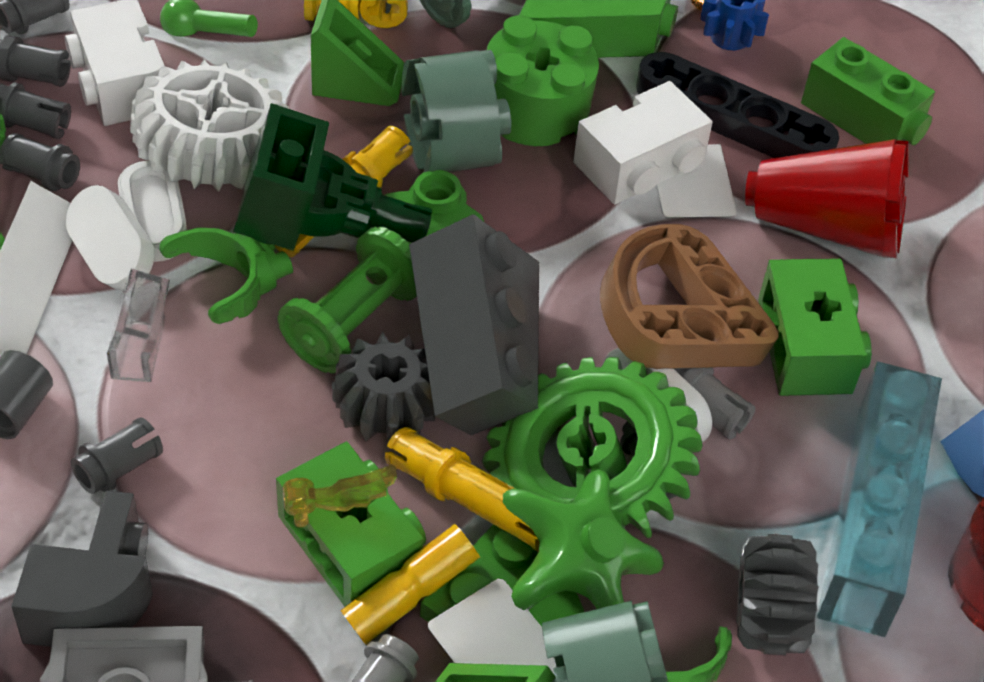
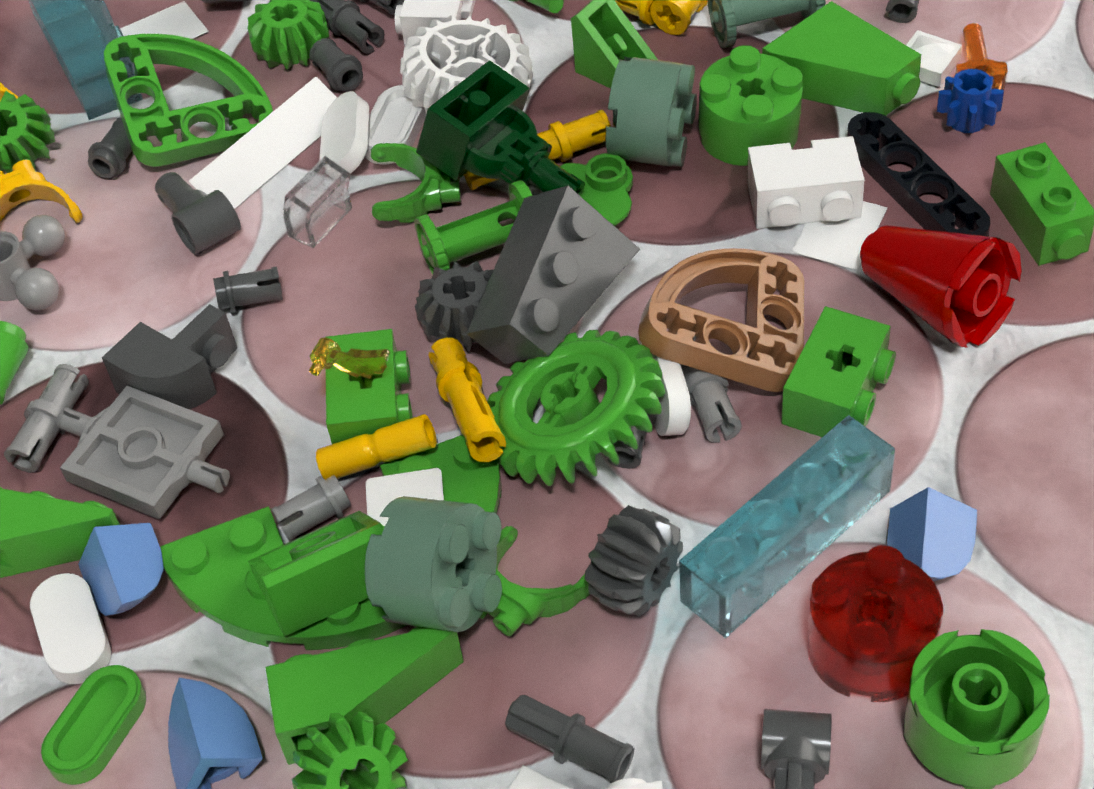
camera: 40 degrees right, 0 degrees up
(579, 546) = (497, 464): bright green animal -> none

